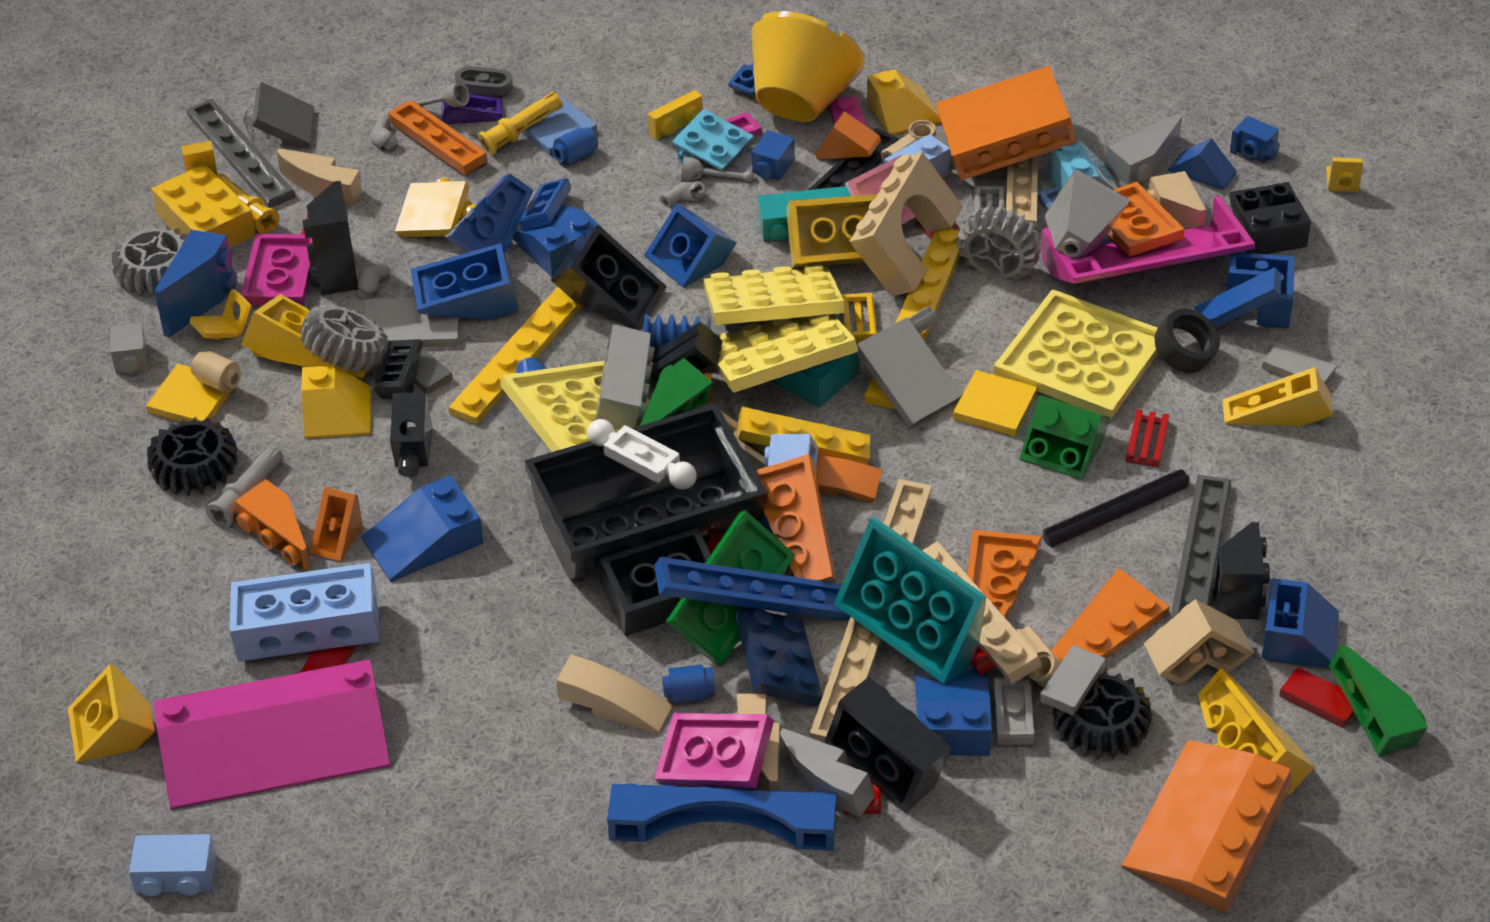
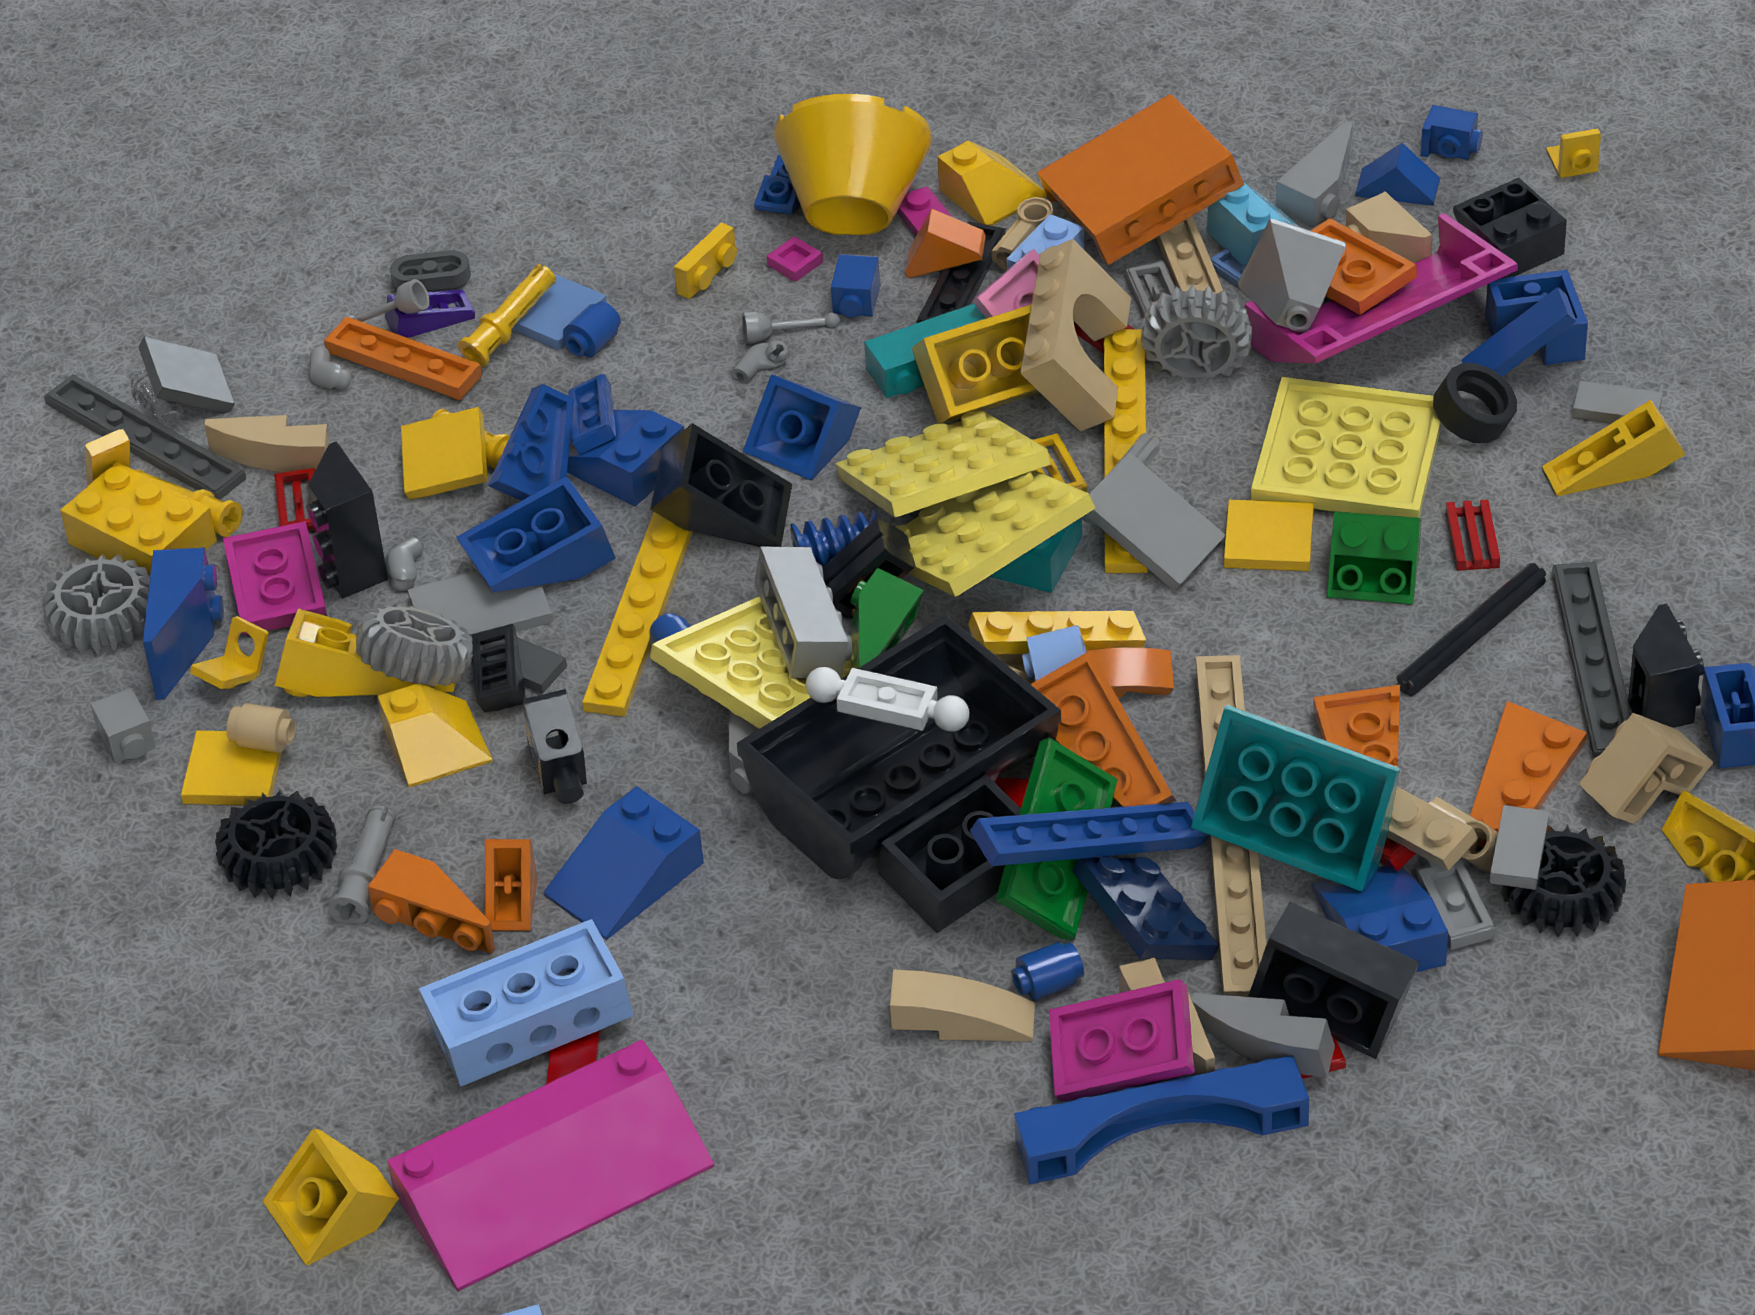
camera: 15 degrees left, 0 degrees up
(711, 140) = (767, 283): medium azure hinge -> none

